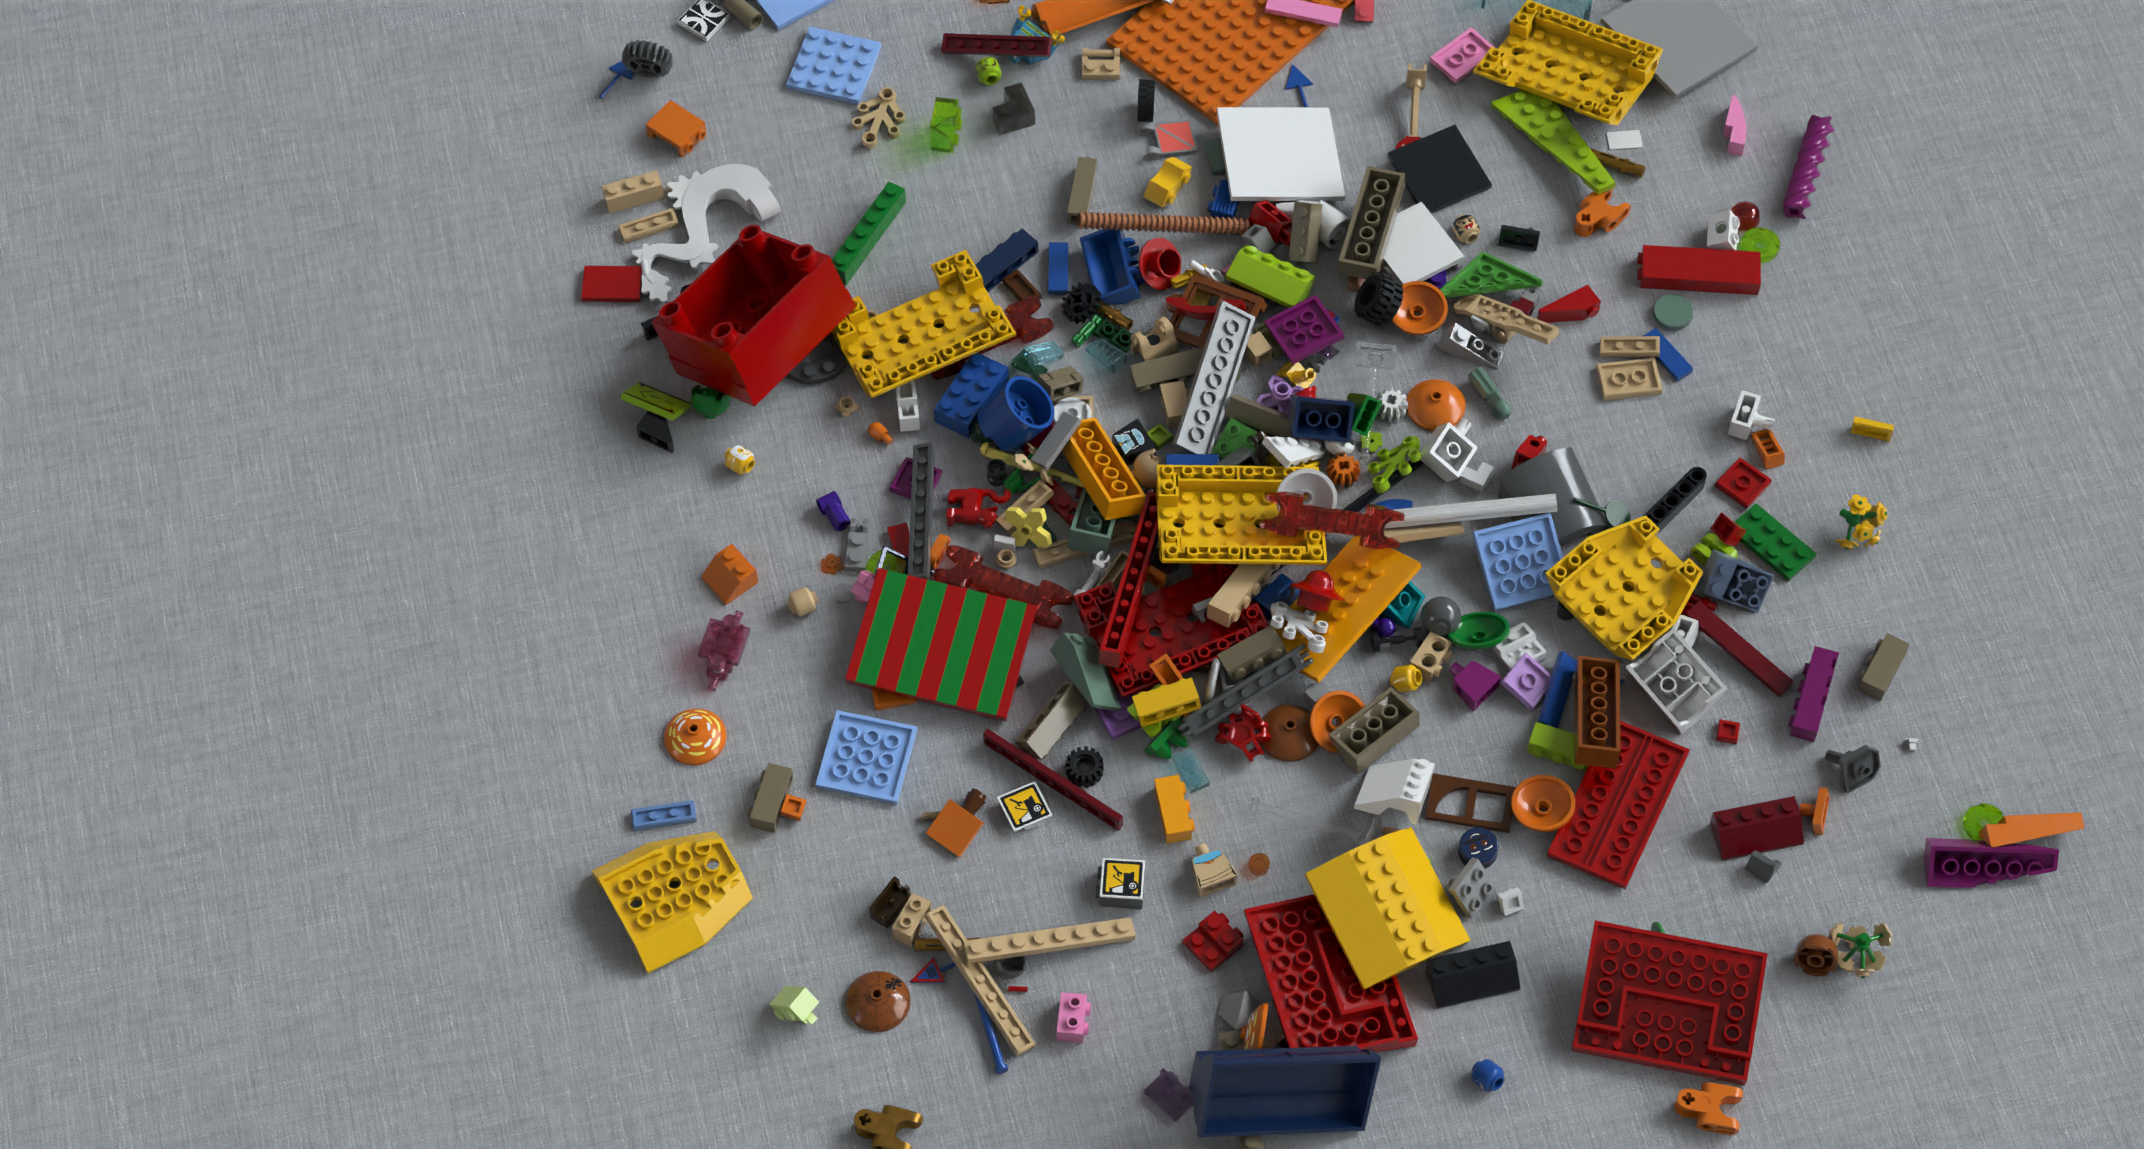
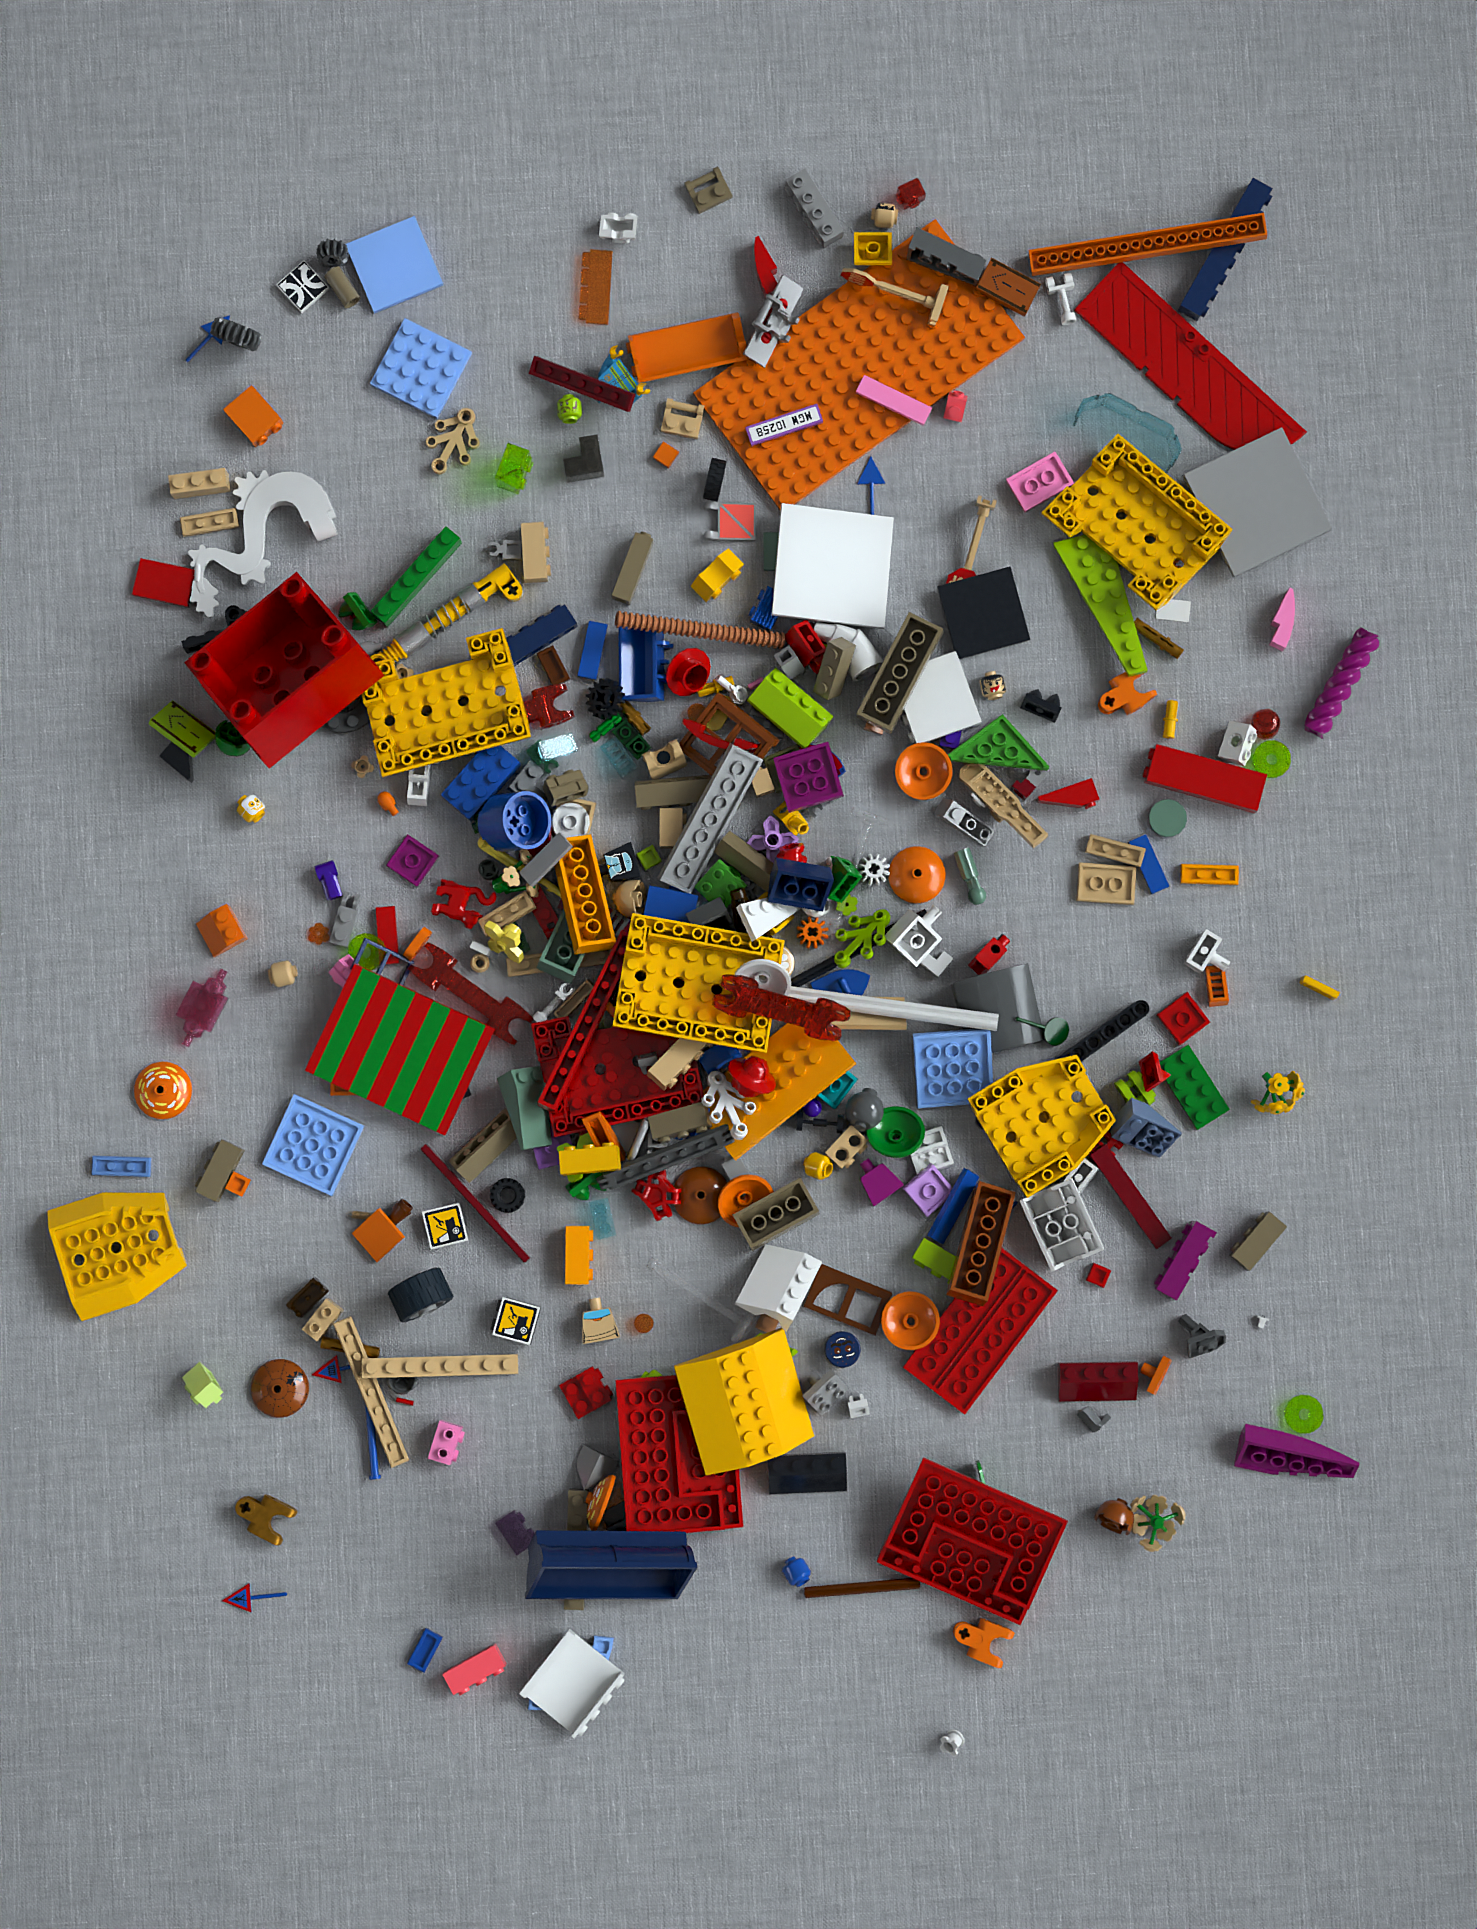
camera: 10 degrees right, 25 degrees up
(921, 510) = (408, 904): dark grey plate -> none
(923, 244) = (419, 635): none -> piece
(955, 197) = (509, 550): none -> light grey plate
(981, 193) = (535, 552): none -> tan brick
(1014, 868) = (420, 1294): none -> black wheel
(1091, 95) = (666, 455): none -> orange tile
(1202, 47) = (784, 424): none -> tile
(1378, 299) = (887, 758): black tyre -> none
(1563, 1081) = (861, 1587): none -> reddish brown axle
(1650, 227) = (1170, 719): none -> yellow axle
(1729, 353) = (1209, 874): none -> light orange tile
(2028, 827) = (1340, 1435): orange wedge -> none

